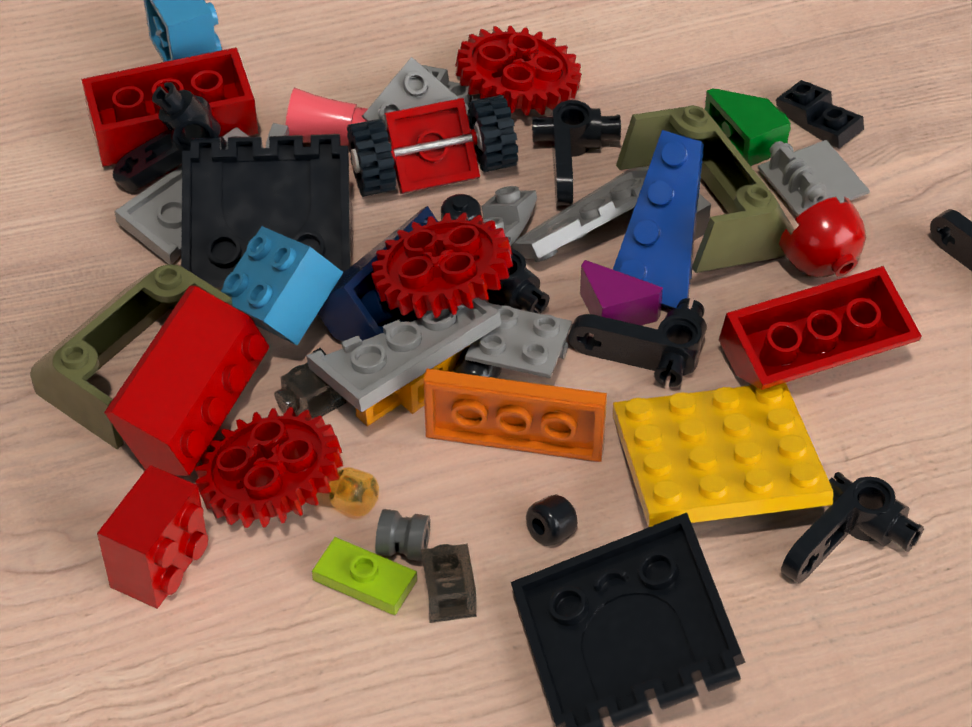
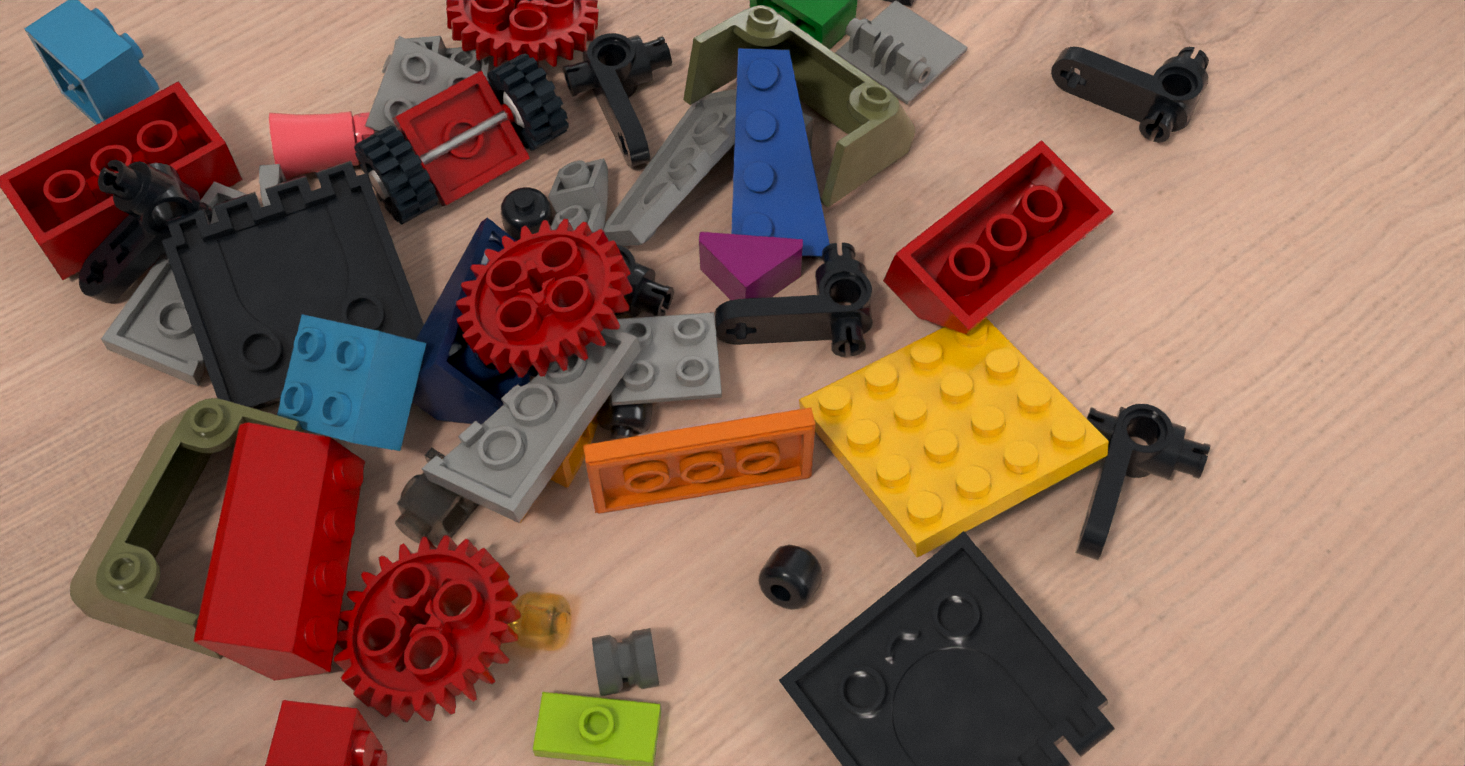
camera: 20 degrees left, 10 degrees up
(448, 582) = (706, 682): clear smoke brick -> none
(826, 239) = (957, 124): red cylinder -> none

